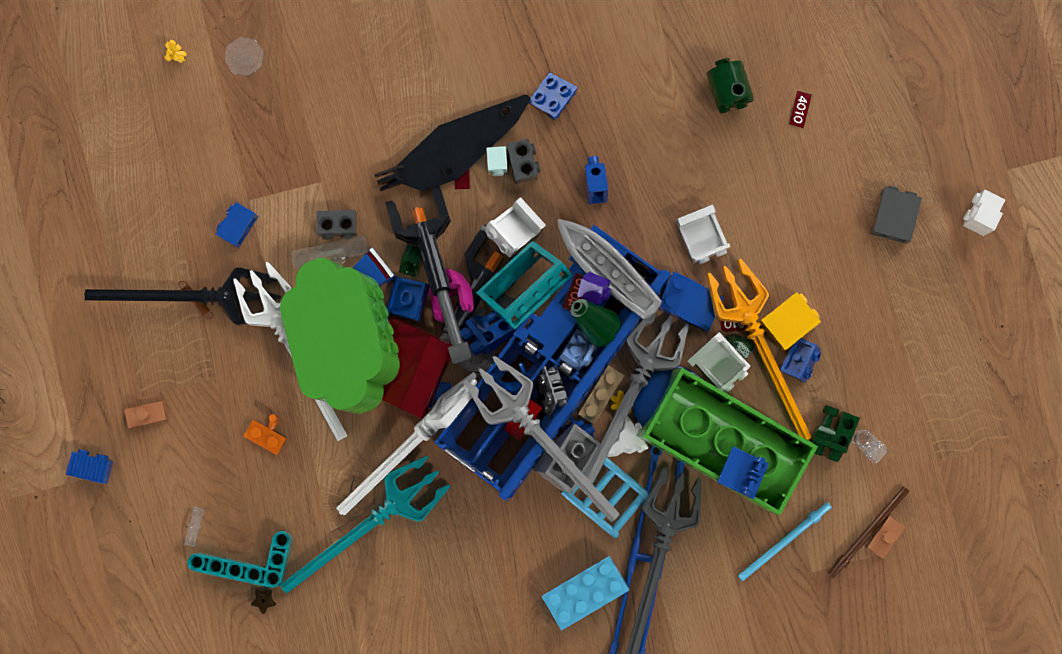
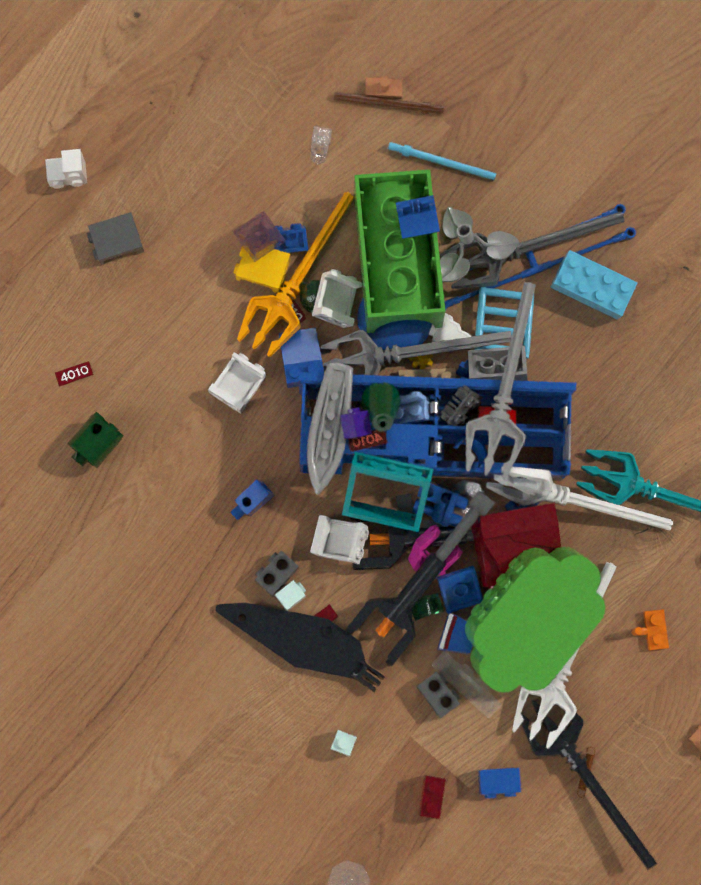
camera: 130 degrees left, 5 degrees down
(262, 163) = (432, 797): none -> dark red brick
(352, 123) = (343, 742): none -> light aqua brick
(553, 95) = (201, 586): hinge -> none
(719, 513) = (459, 224): none -> light grey plant
(818, 333) = (259, 236): none -> slope
(834, 438) = (333, 171): dark green hips -> none

